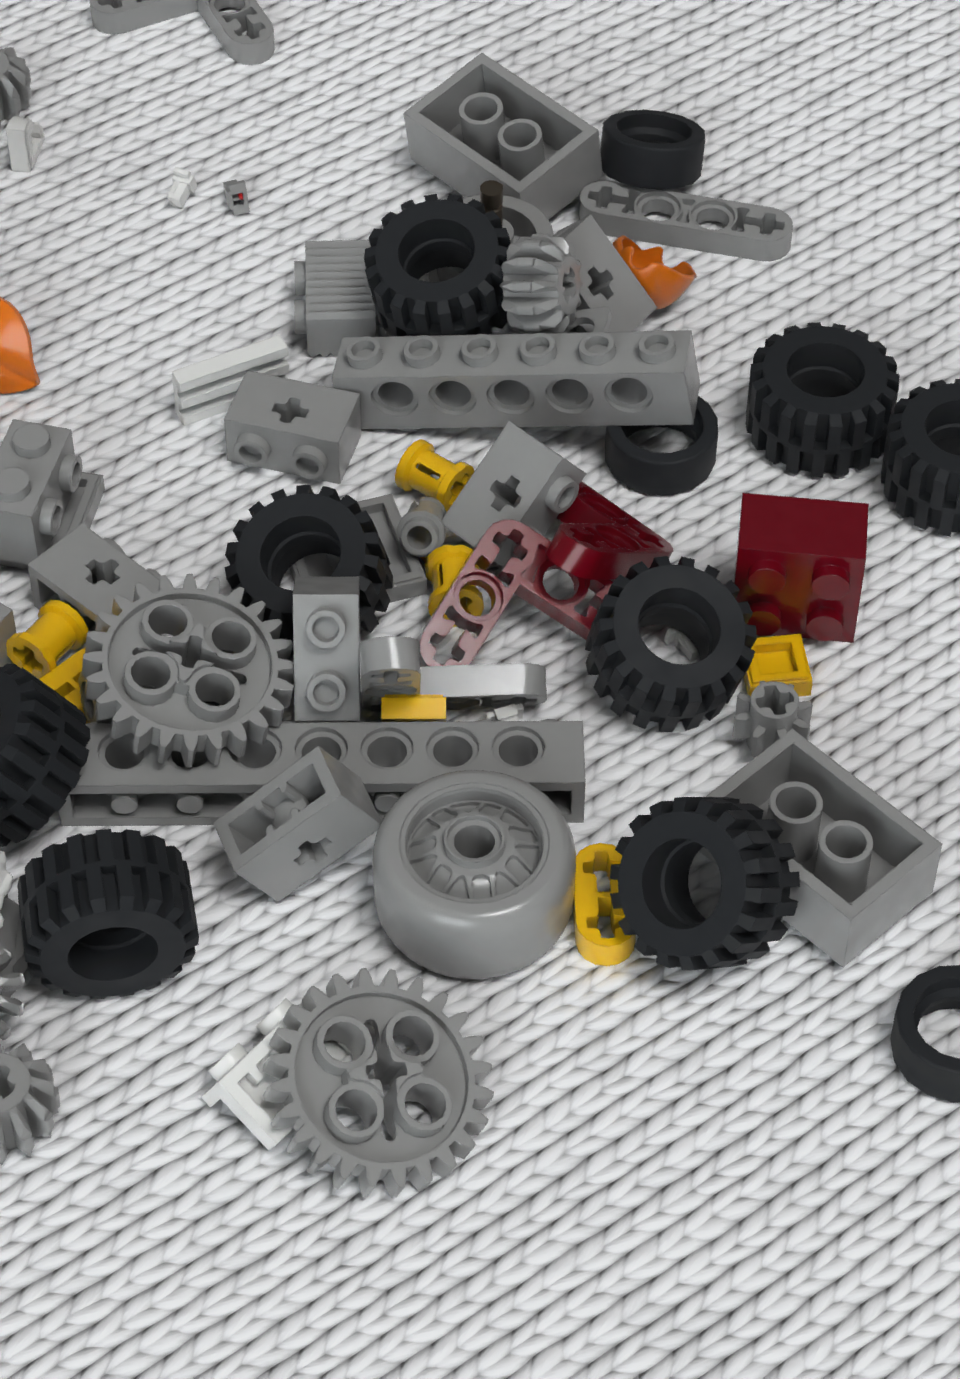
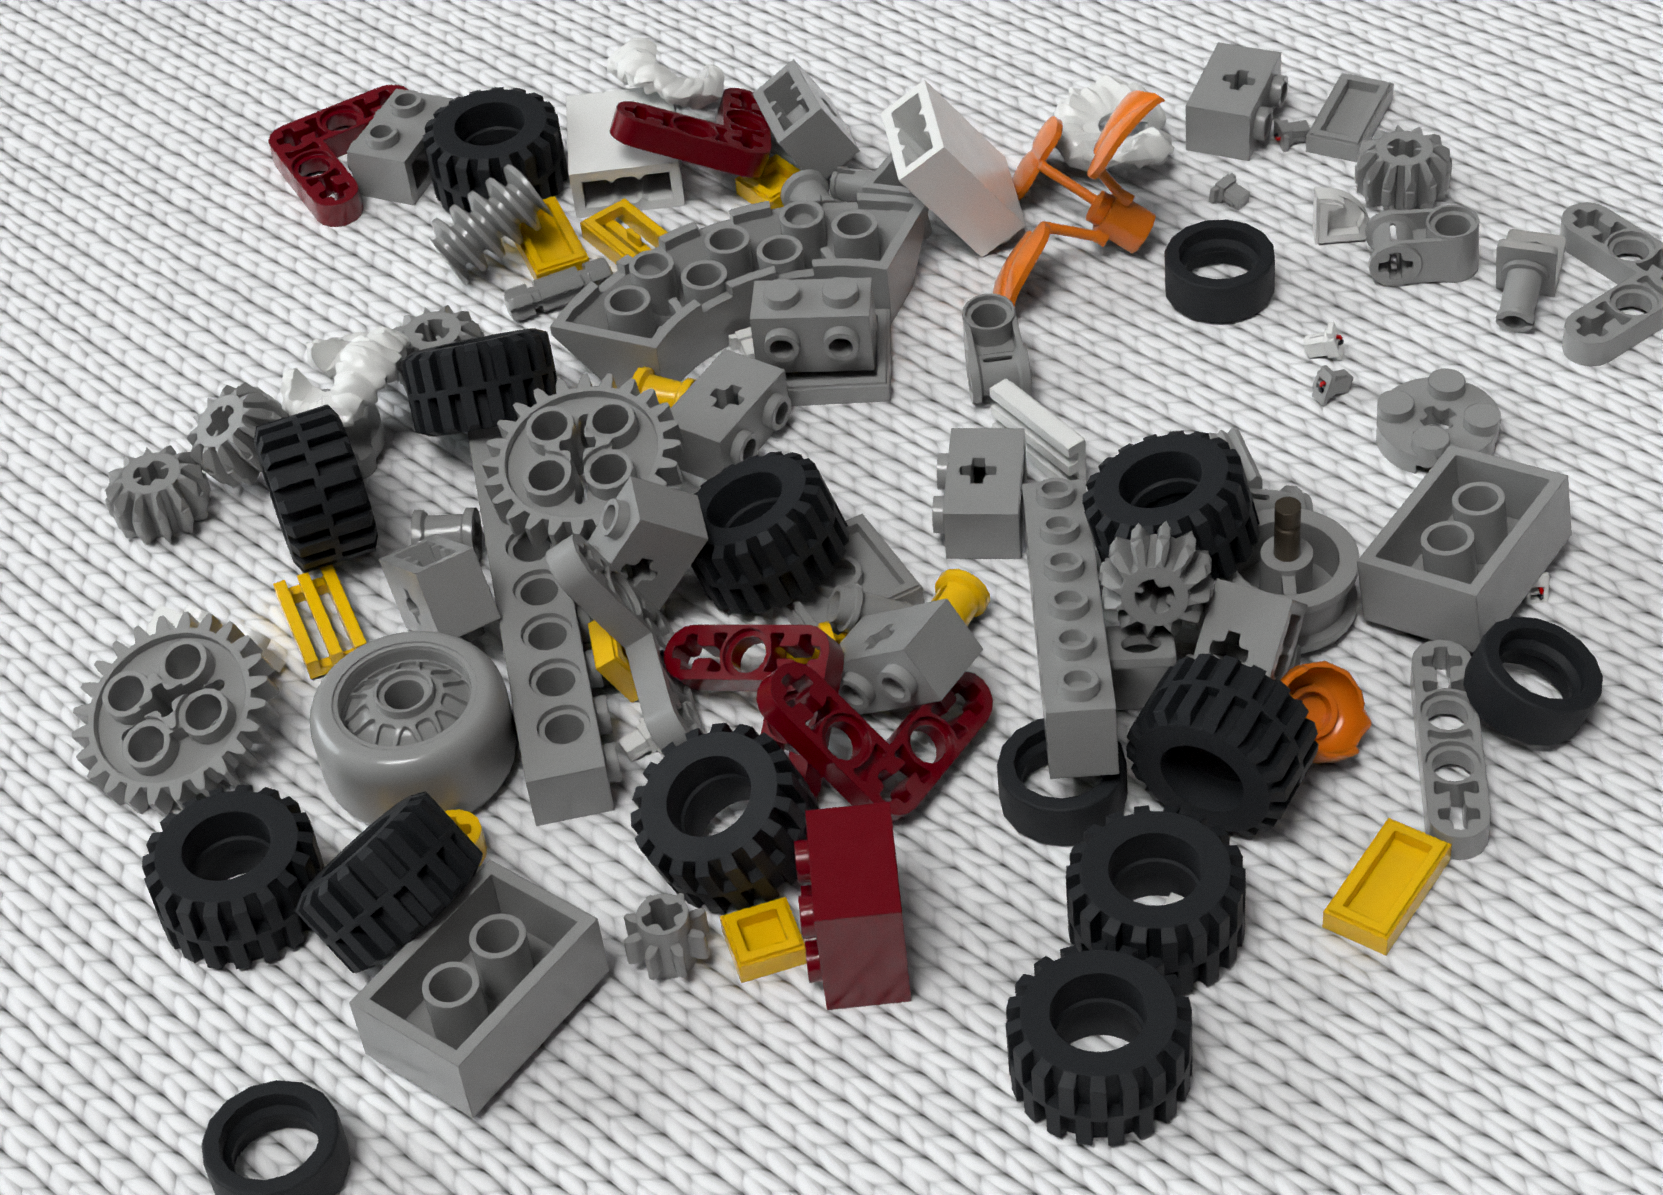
camera: 85 degrees right, 5 degrees down
(62, 253) = (1219, 298): none -> black tyre
(93, 94) = (1429, 245): none -> light grey piece
(94, 390) = (993, 346): none -> light grey piece
(166, 47) = (1525, 268): none -> light grey bracket
(184, 825) = (462, 528): none -> light grey bush
(247, 959) = (310, 591): none -> yellow tile
(294, 132) = (1441, 398): none -> light grey plate
(631, 992) = (219, 840): none -> black tyre
(703, 290) = (1222, 743): none -> black tyre
(813, 286) = (1387, 886): none -> yellow tile

